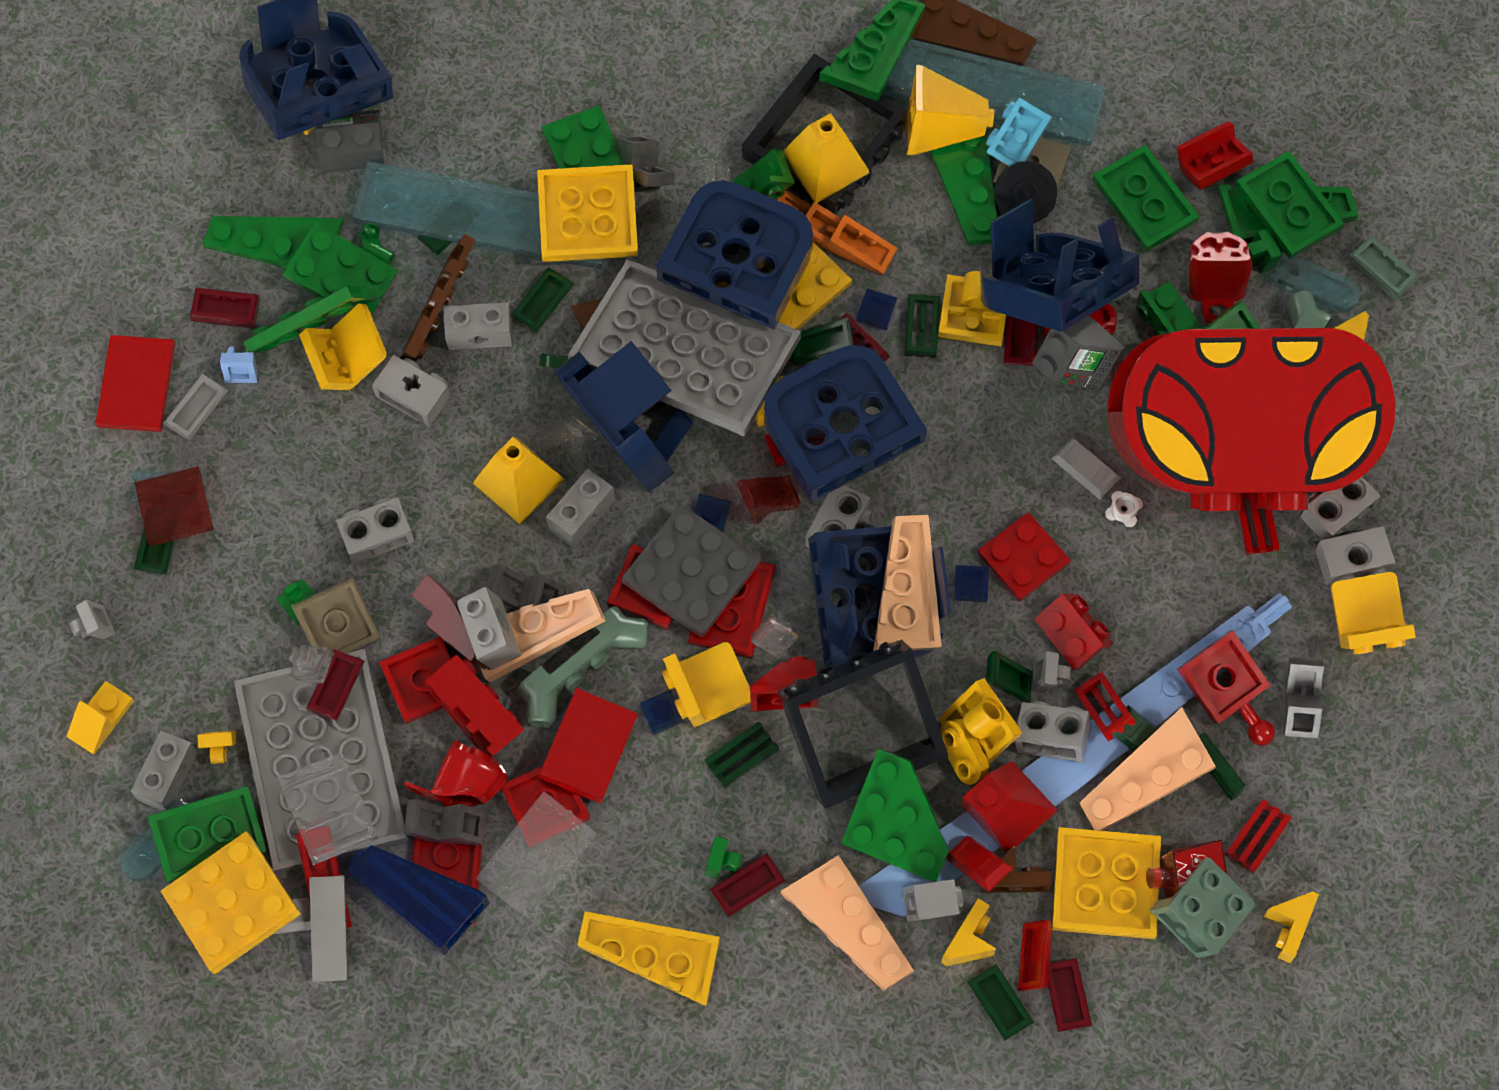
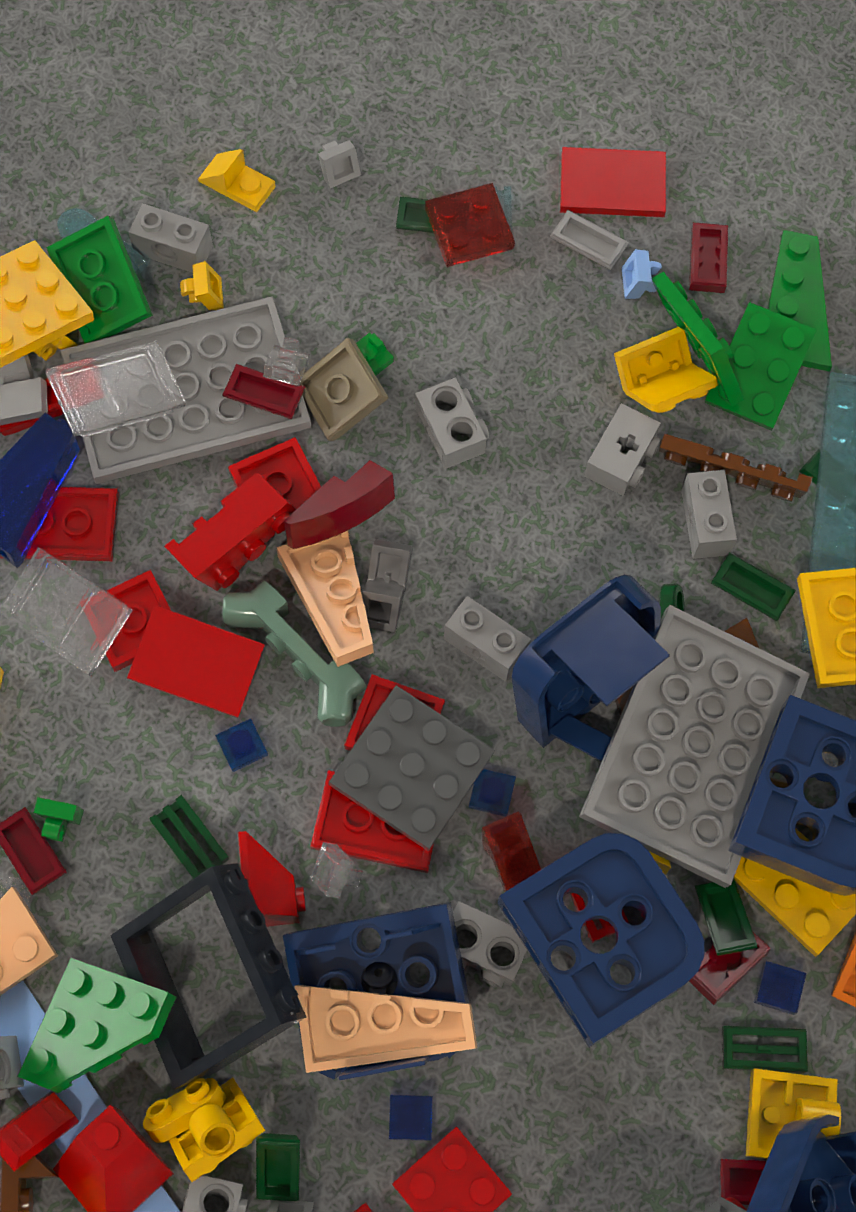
camera: 85 degrees right, 0 degrees up
(371, 243) = (802, 400): green arm -> none
(445, 824) = (106, 513): flat silver slope -> none
(464, 778) = (151, 524): red piece -> none
(488, 628) = (327, 540): light grey brick -> none
(518, 480) = (524, 572): yellow slope -> none
(707, 684) = (271, 790): yellow bracket -> none

